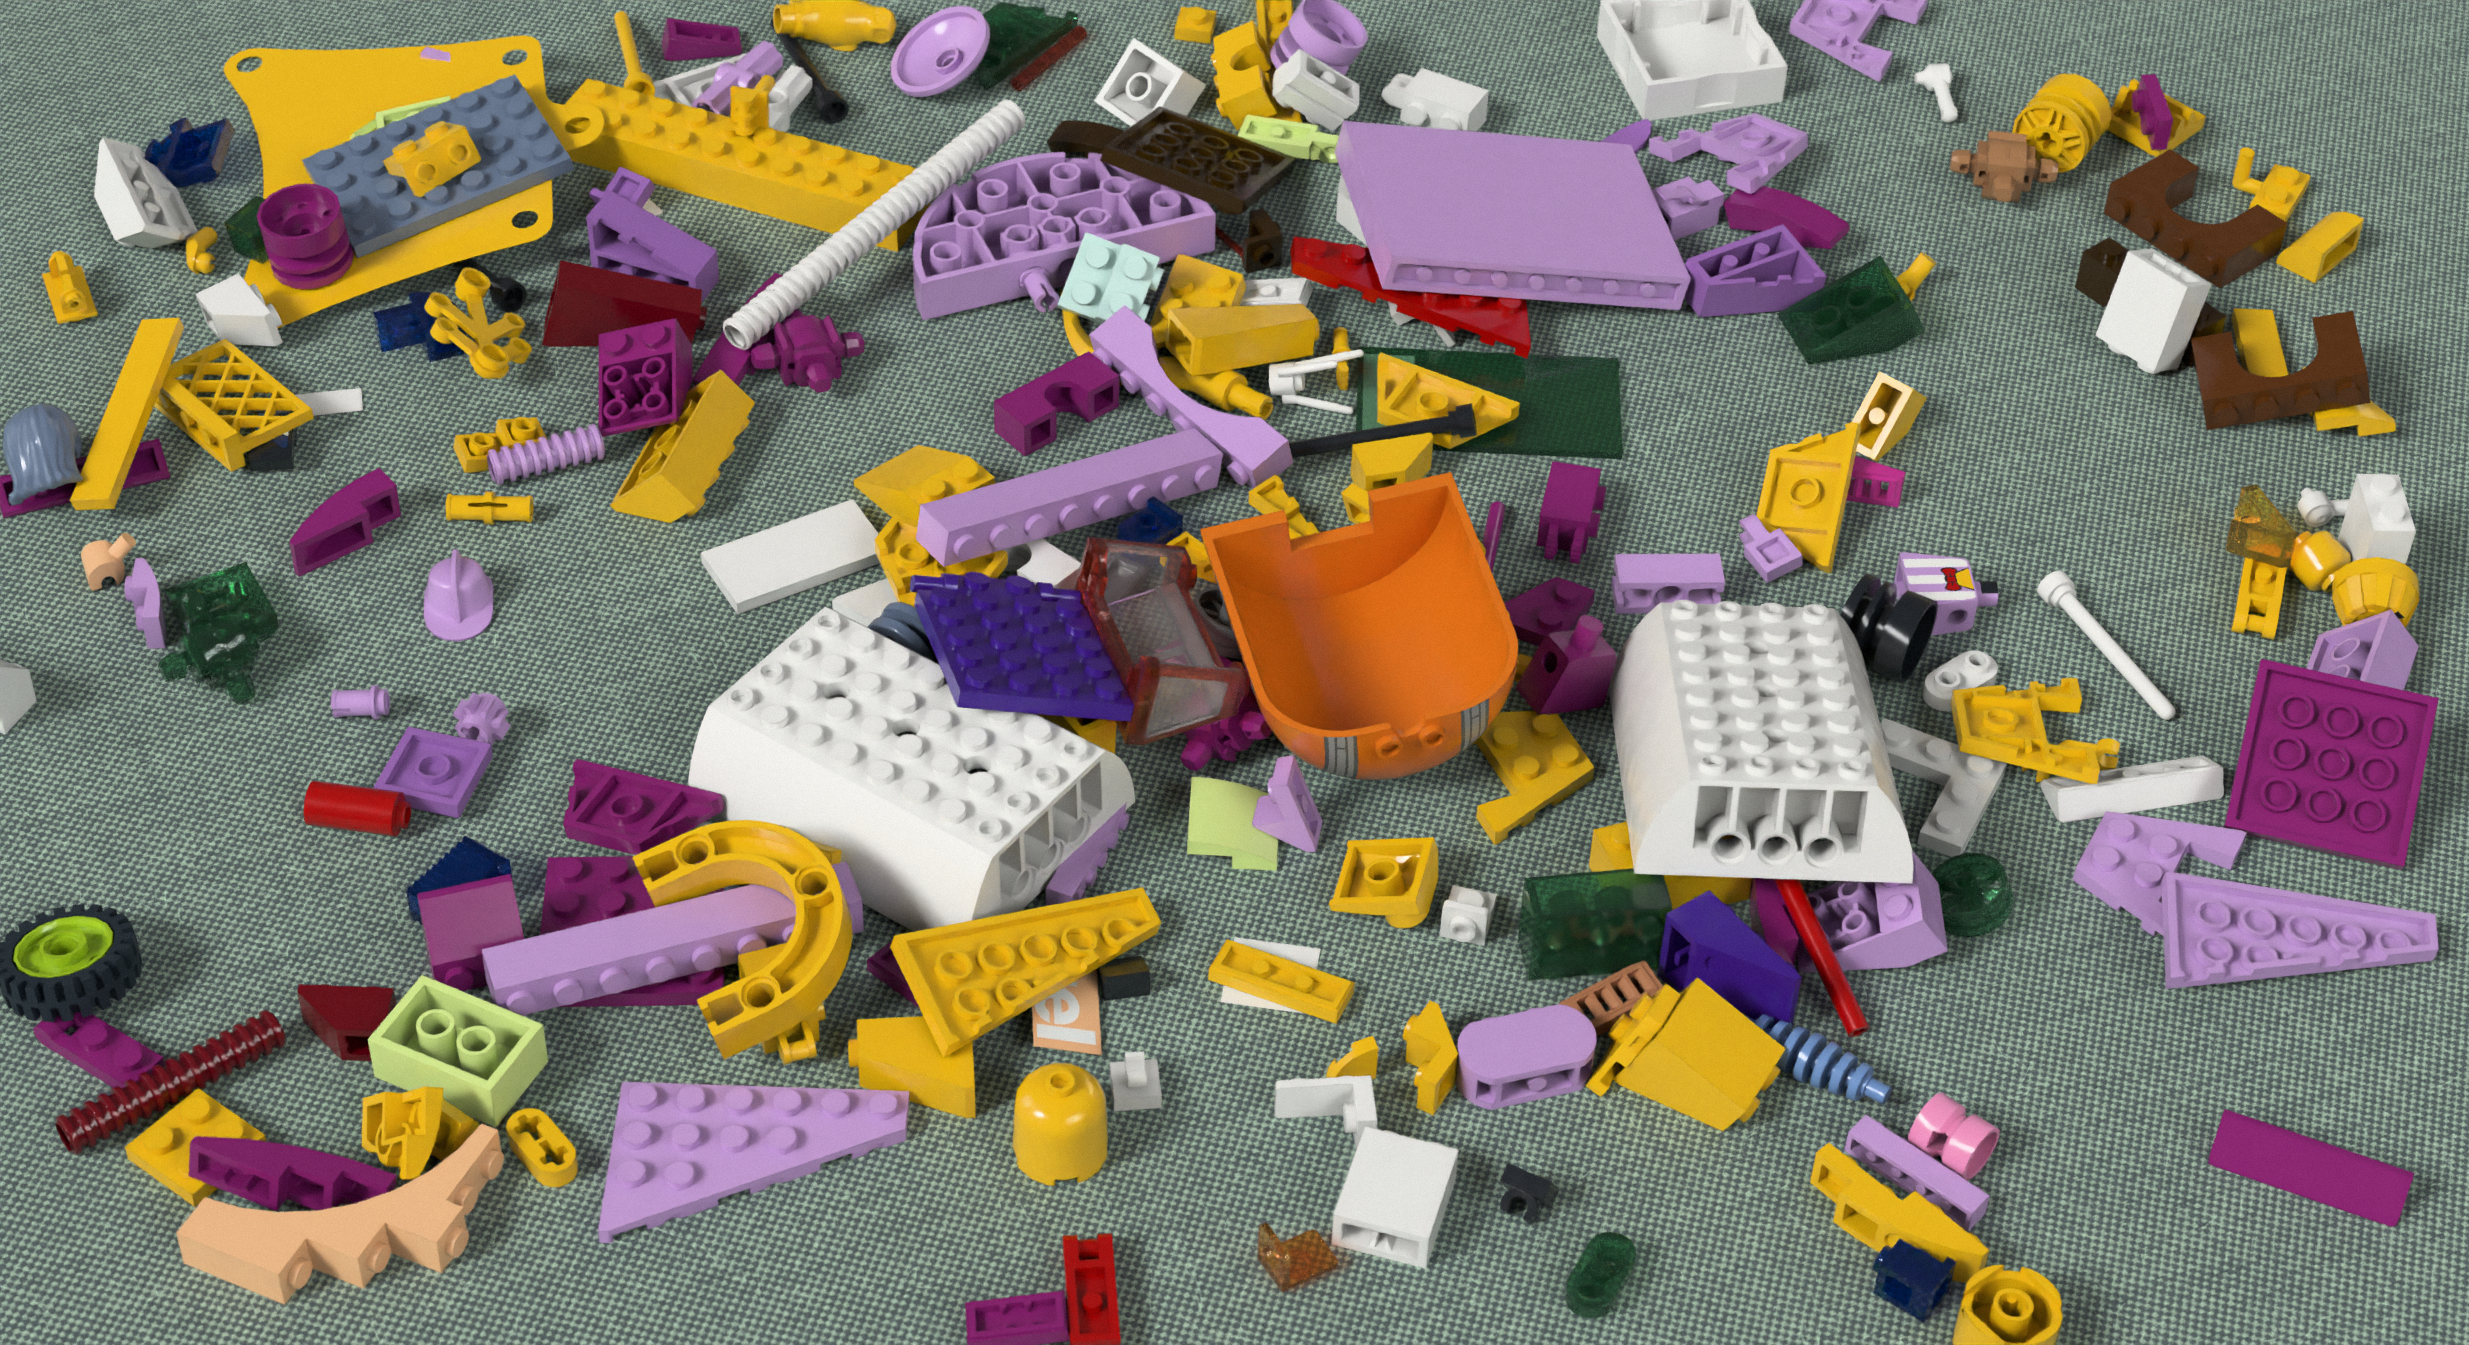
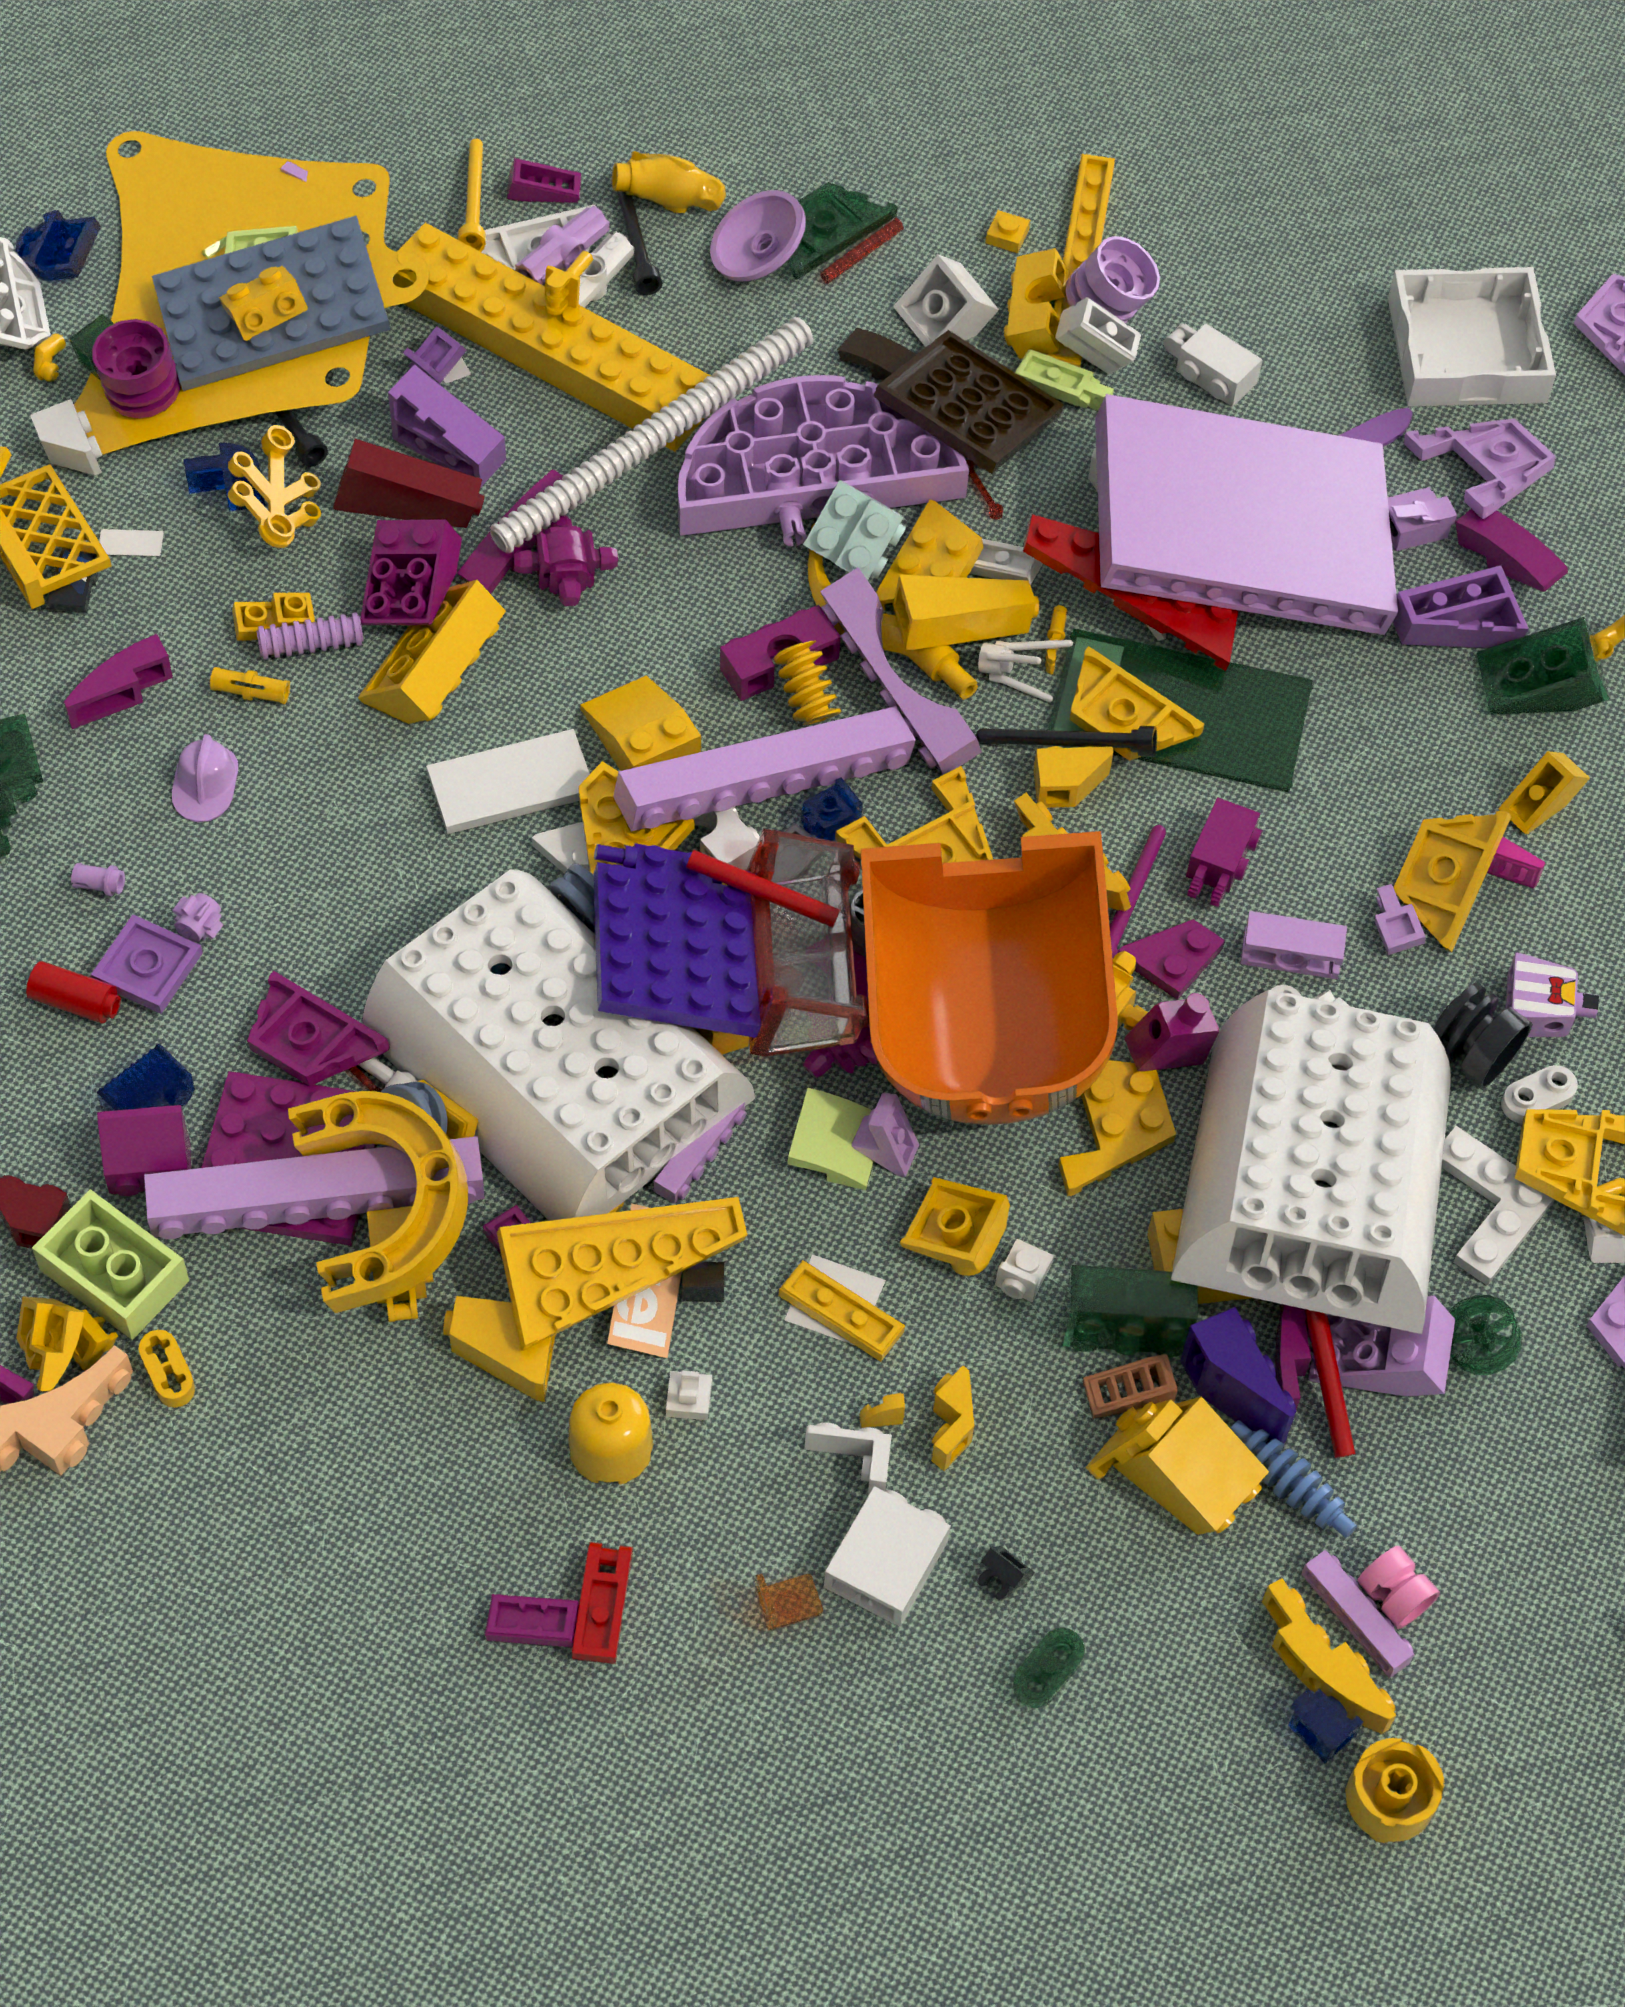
camera: 10 degrees right, 15 degrees up
(701, 1142) = (318, 1388): lavender wing -> none
(1089, 417) = (806, 683): none -> yellow piece
(1099, 594) = (763, 888): none -> red piece
(1264, 243) = (1013, 504): dark brown bracket -> none
(1525, 1056) = (1036, 1431): lavender brick -> none

